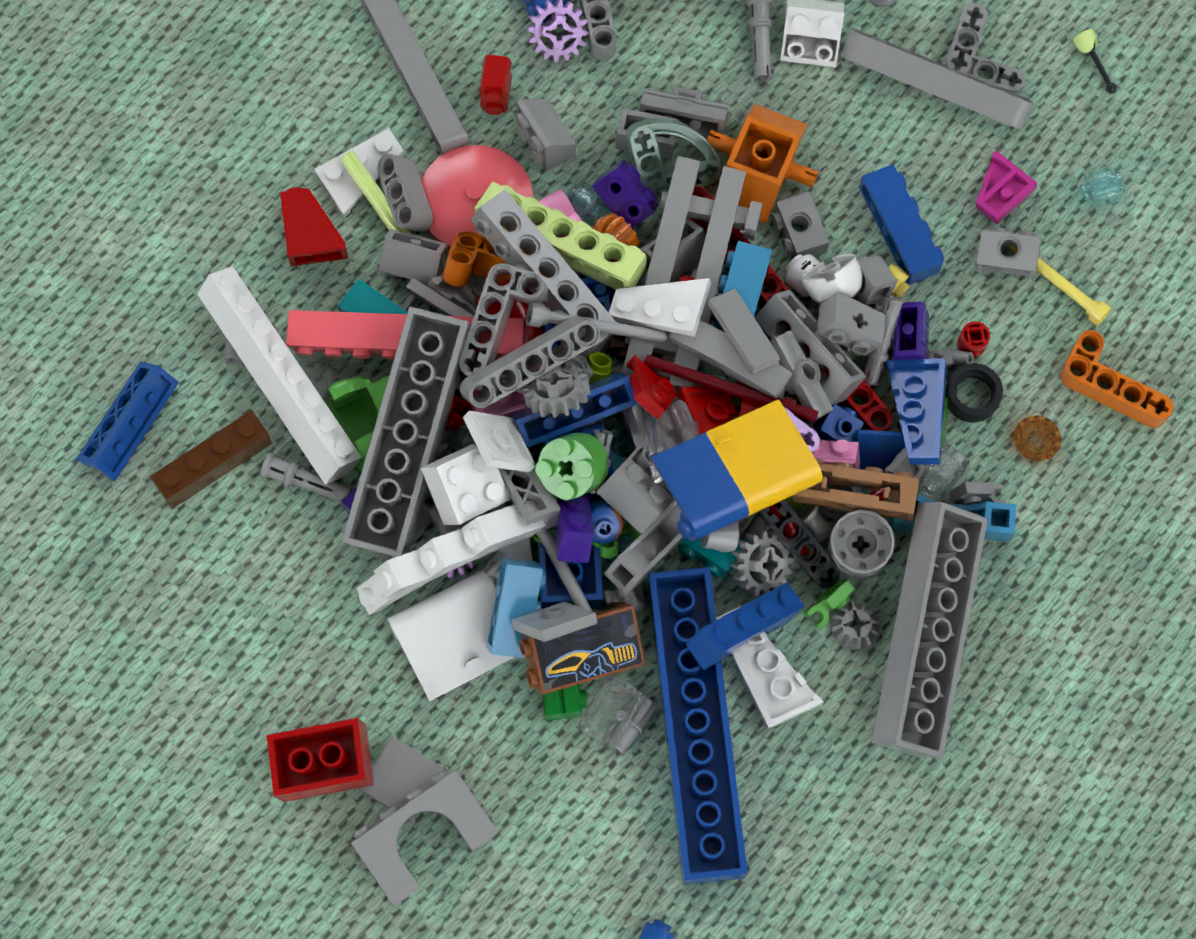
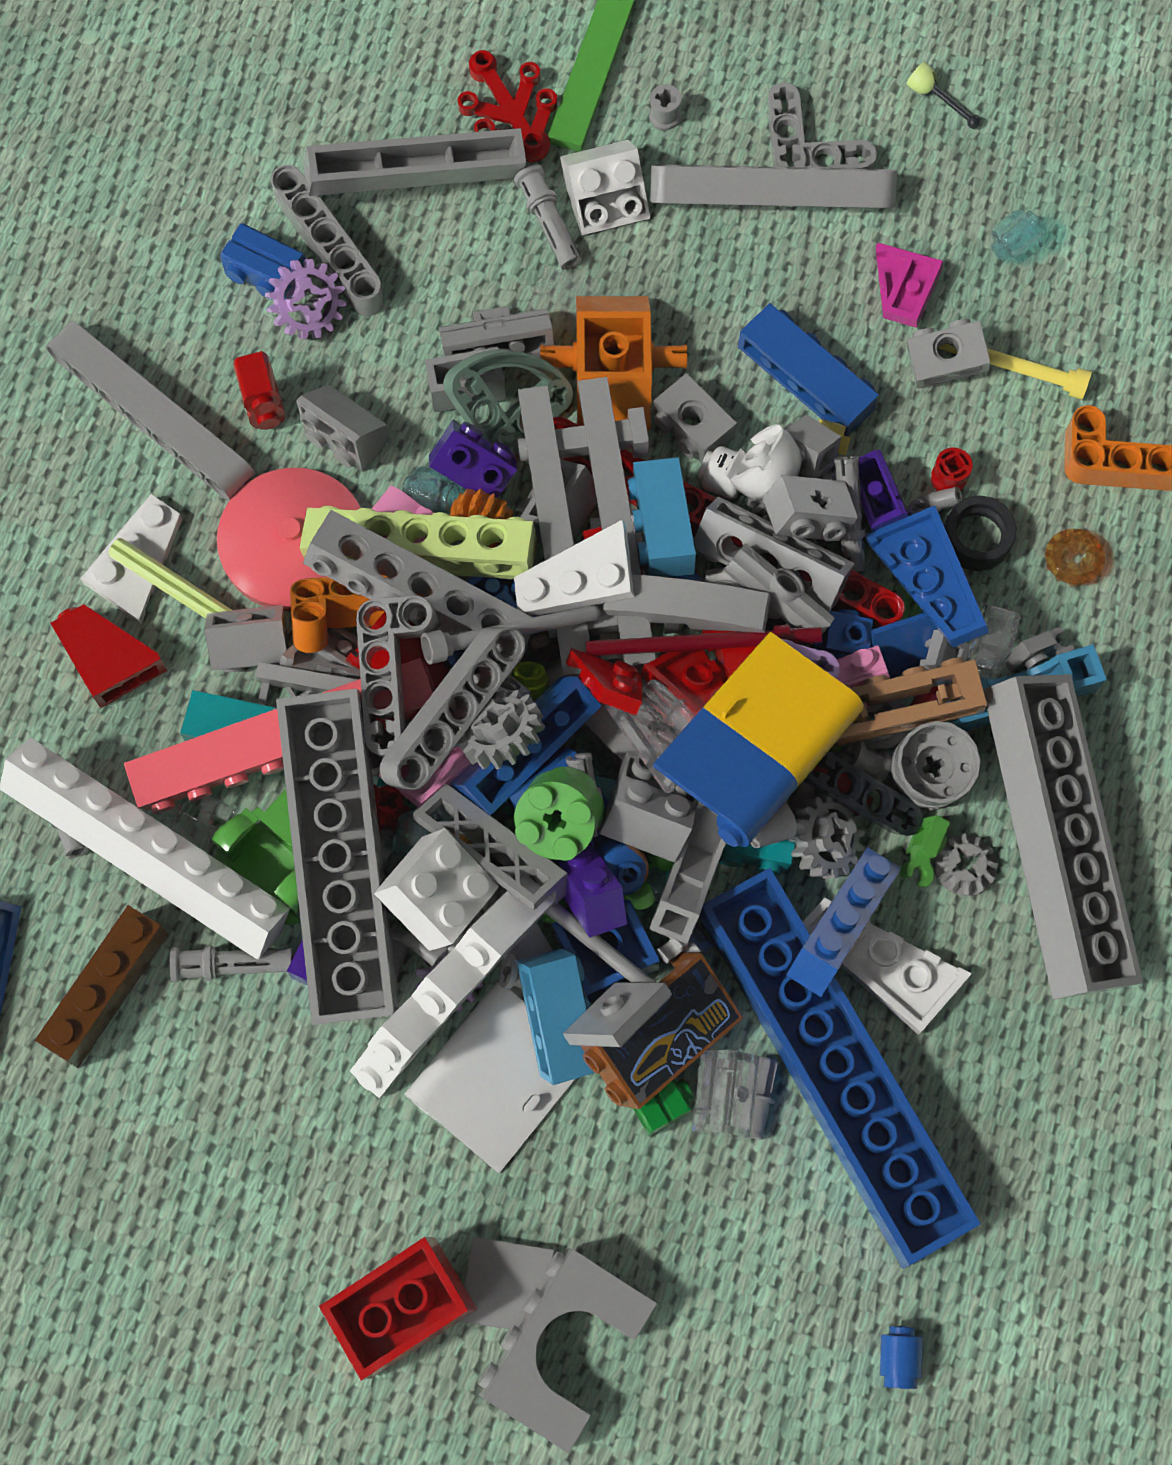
camera: 20 degrees left, 0 degrees up
(404, 193) = (204, 563): light grey beam -> none
(499, 441) = (457, 821): white tile -> none
(743, 331) = (692, 567): light grey tile -> none

